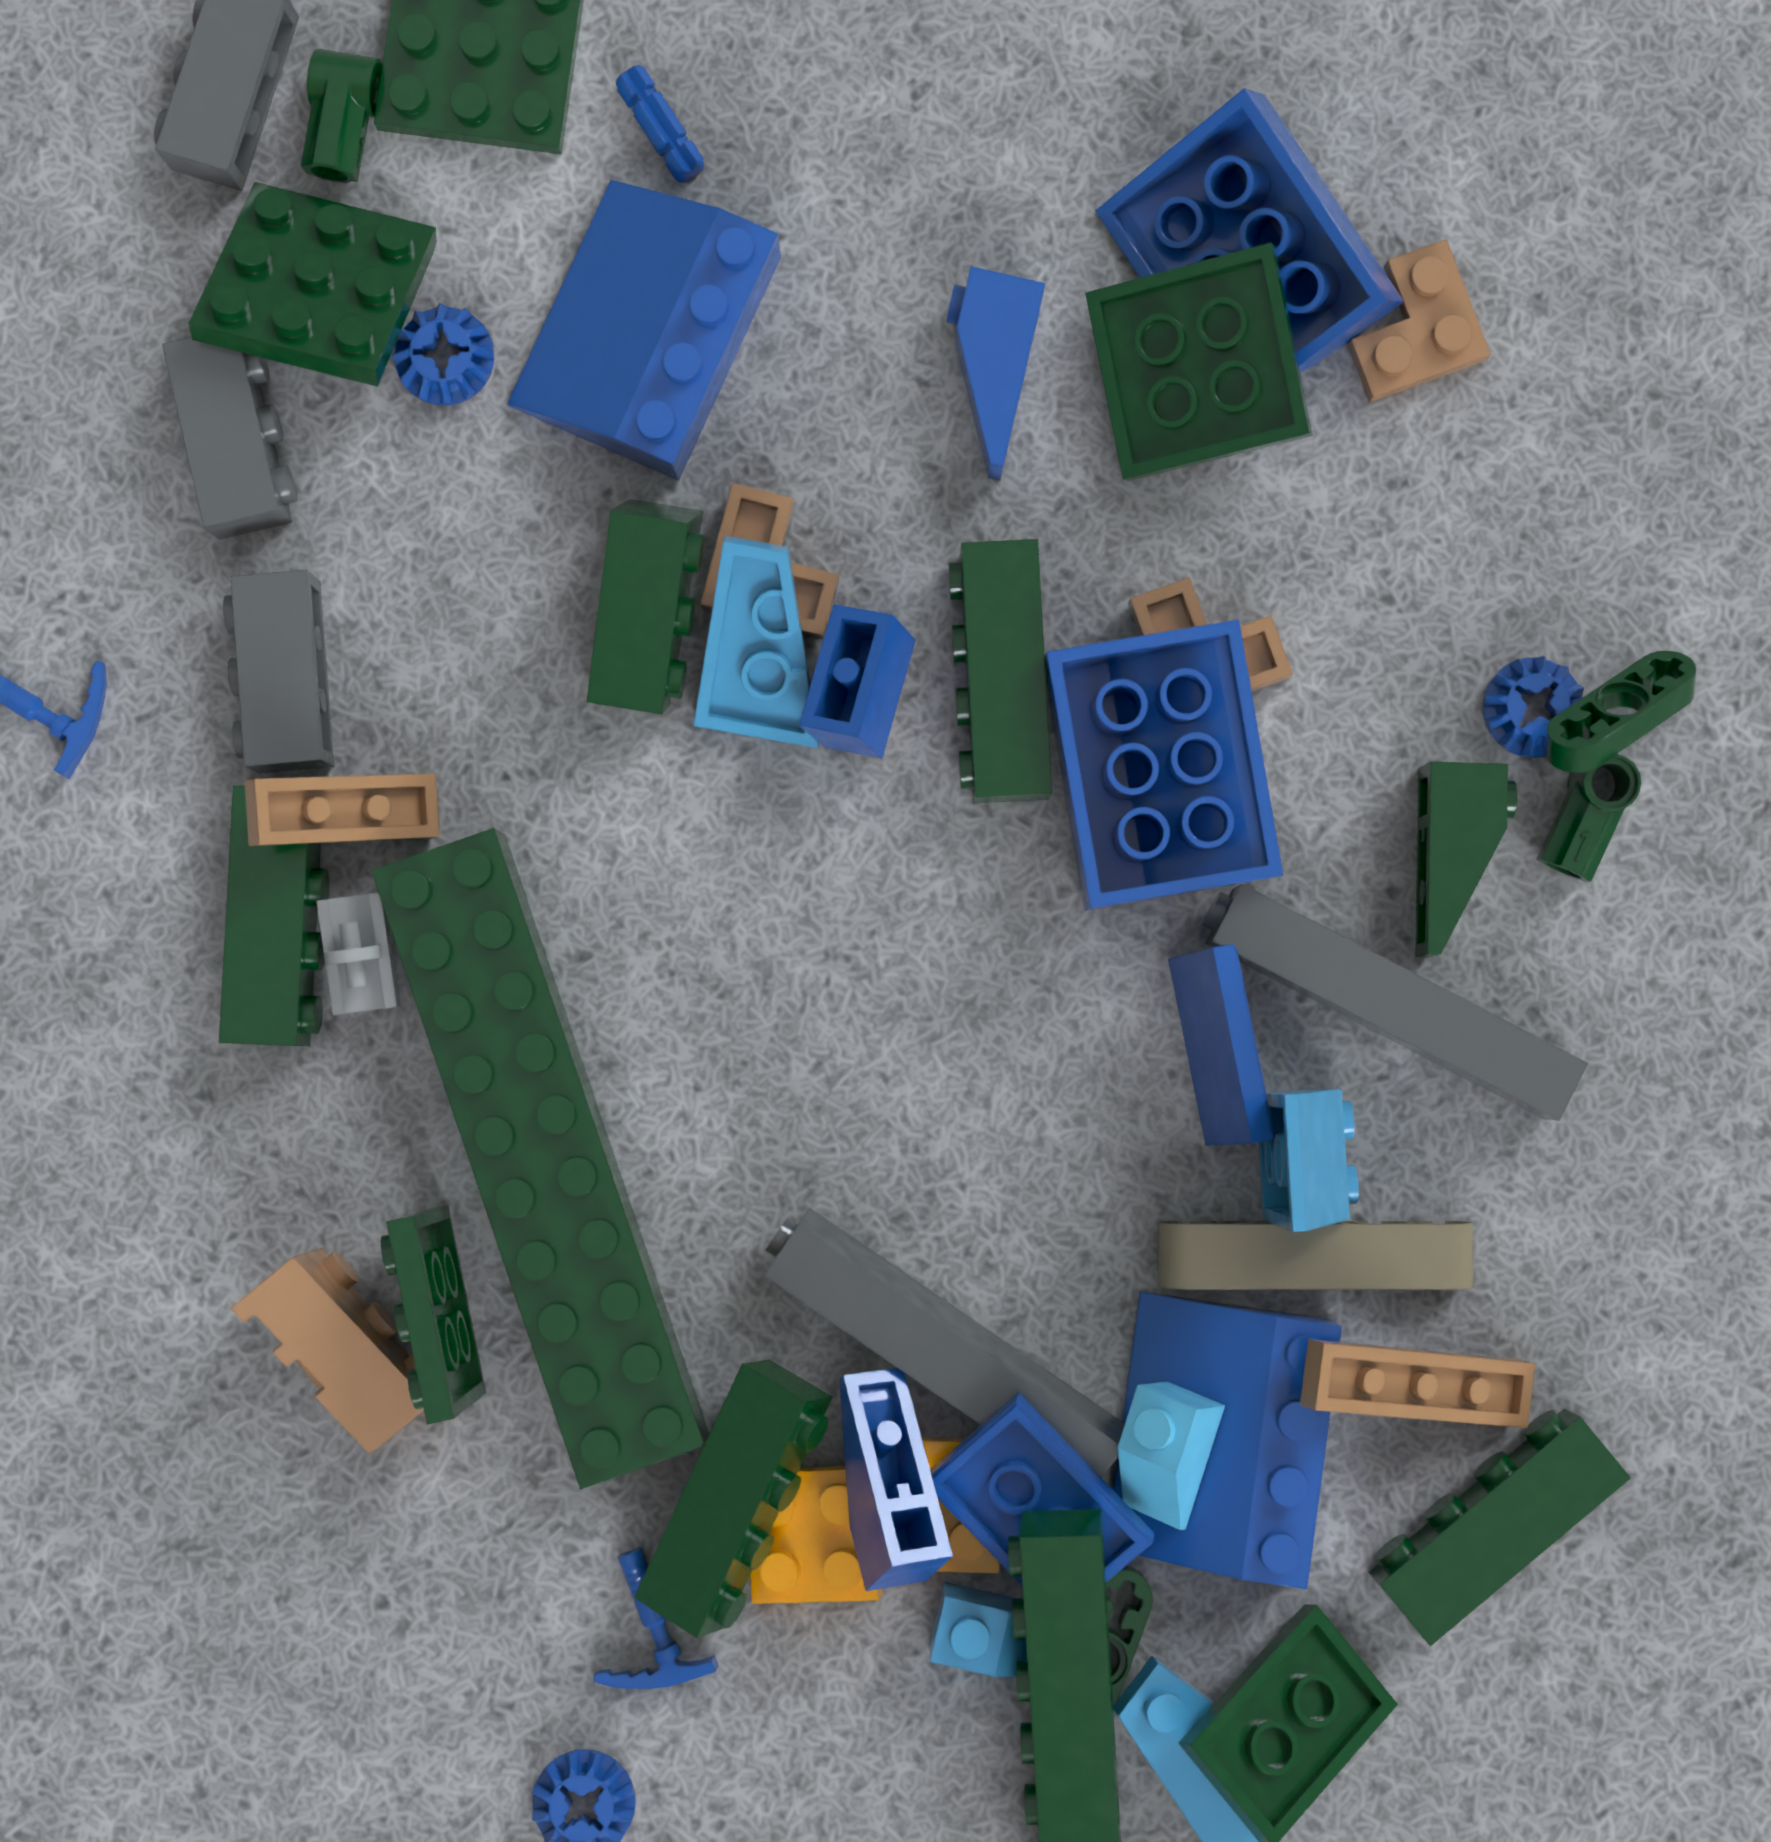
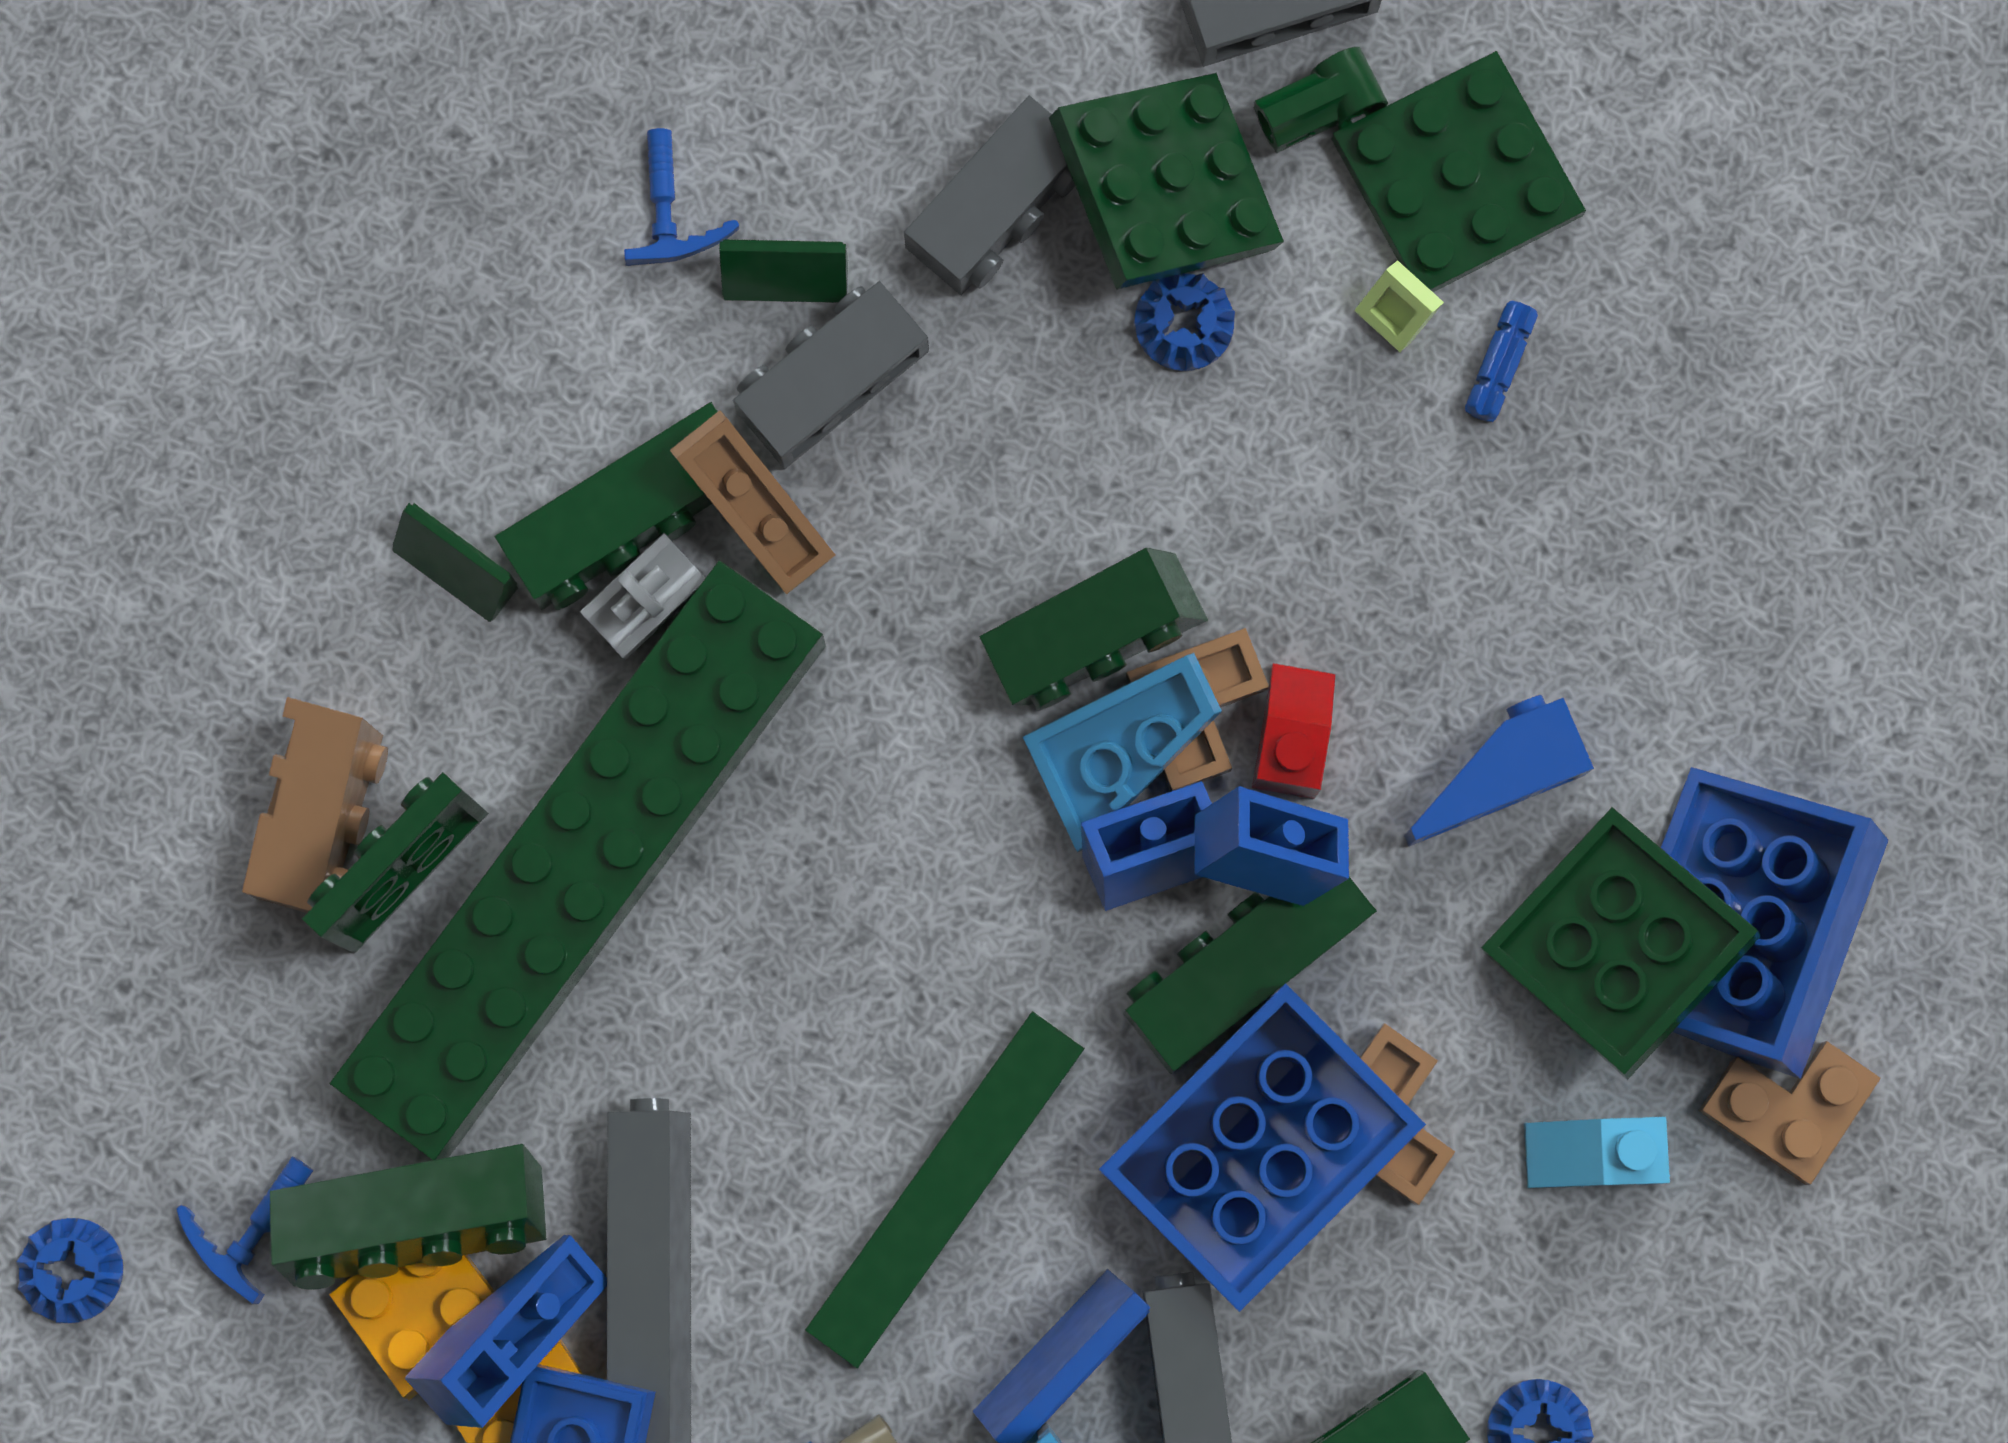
camera: 50 degrees right, 5 degrees down
(165, 651) = (783, 270): none -> dark green slope
(217, 1092) = (453, 563): none -> dark green slope
(555, 171) = (1398, 306): none -> yellowish green plate
(647, 325) = (1326, 468): blue slope -> none
(845, 503) = (1295, 731): none -> red slope
(929, 582) = (1271, 846): none -> blue brick
(1015, 1044) = (944, 1189): none -> dark green tile
(1351, 502) = (1597, 1152): none -> medium azure slope

